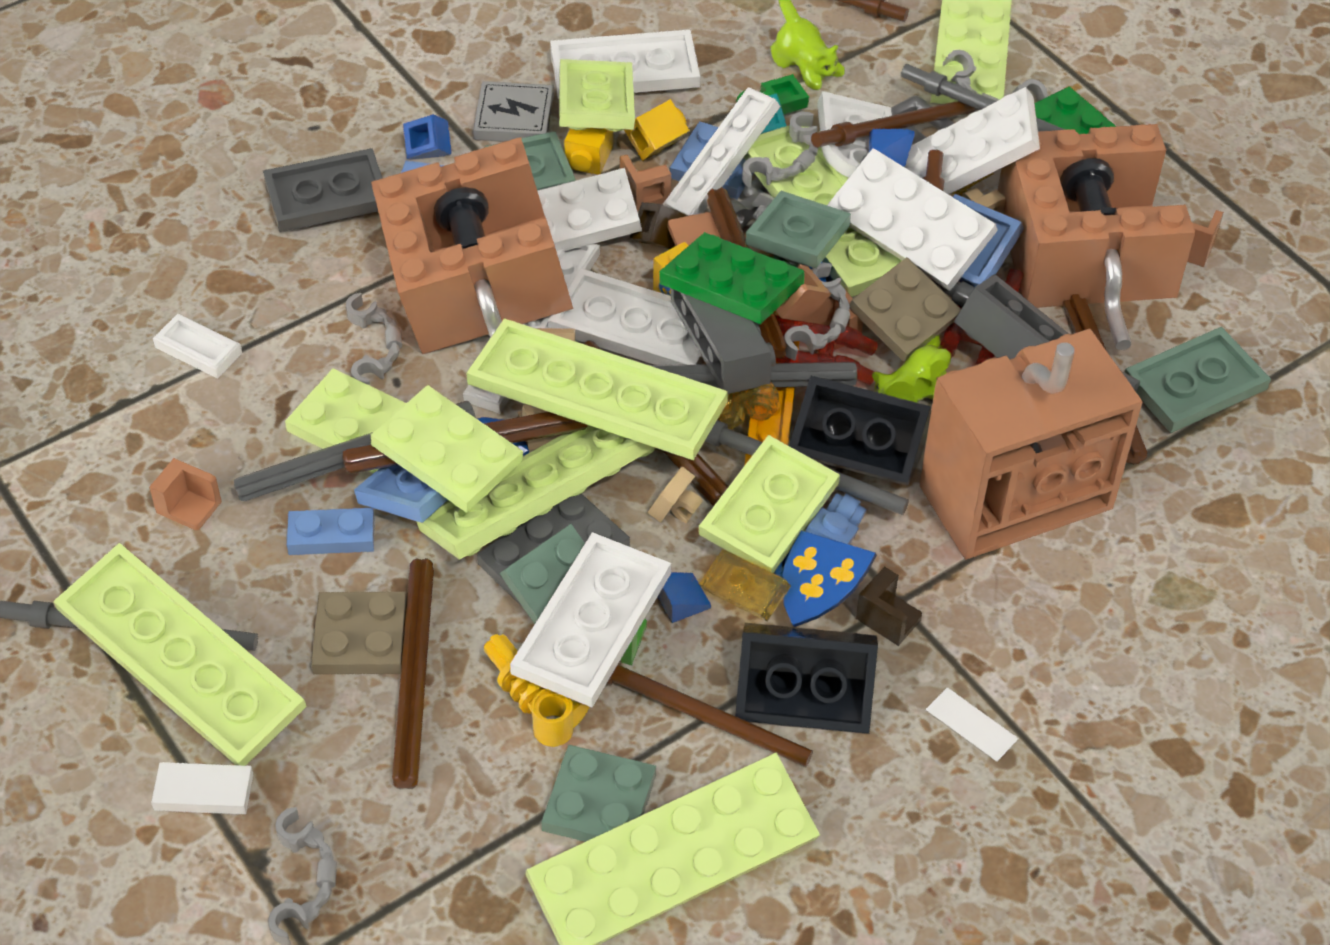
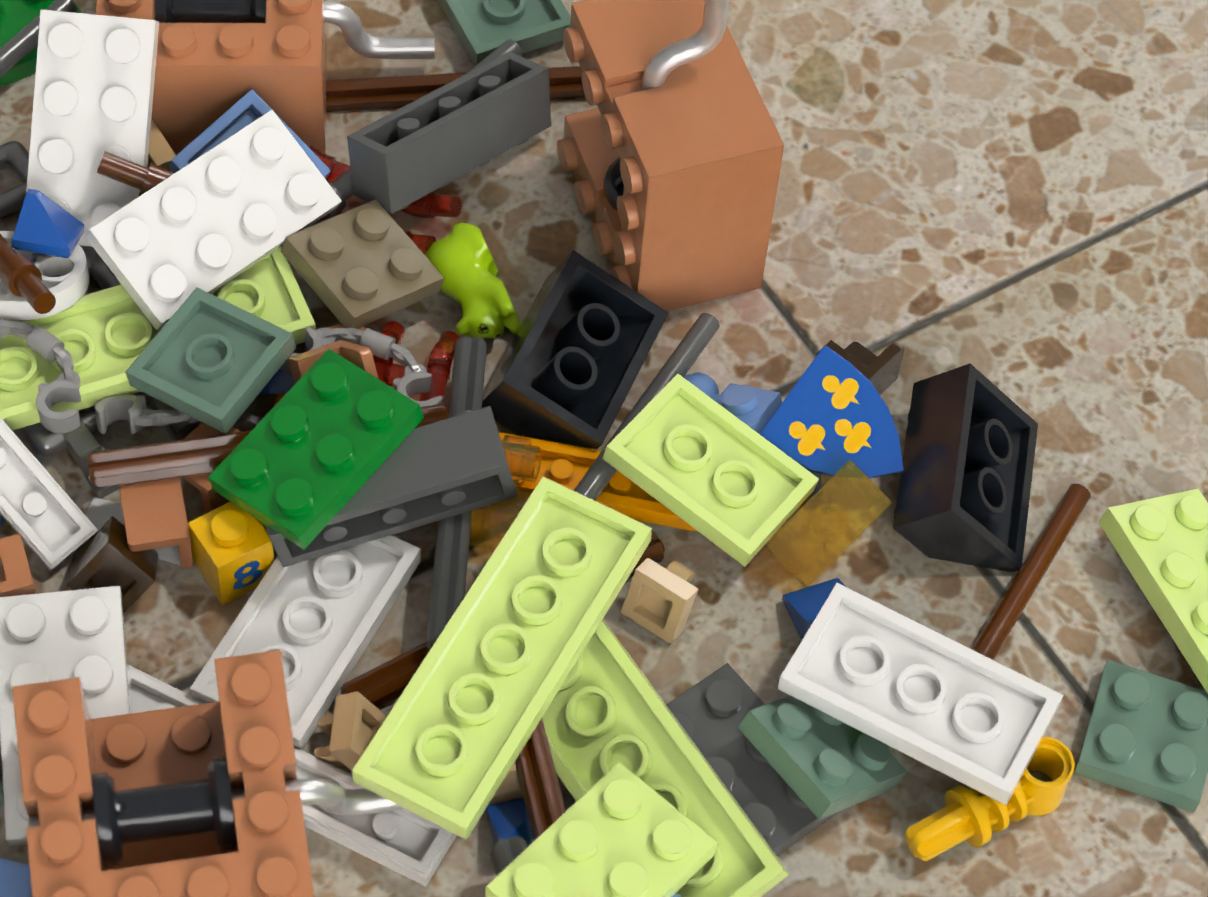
camera: 90 degrees left, 5 degrees up
(972, 724) = (1015, 318): white sticker -> none

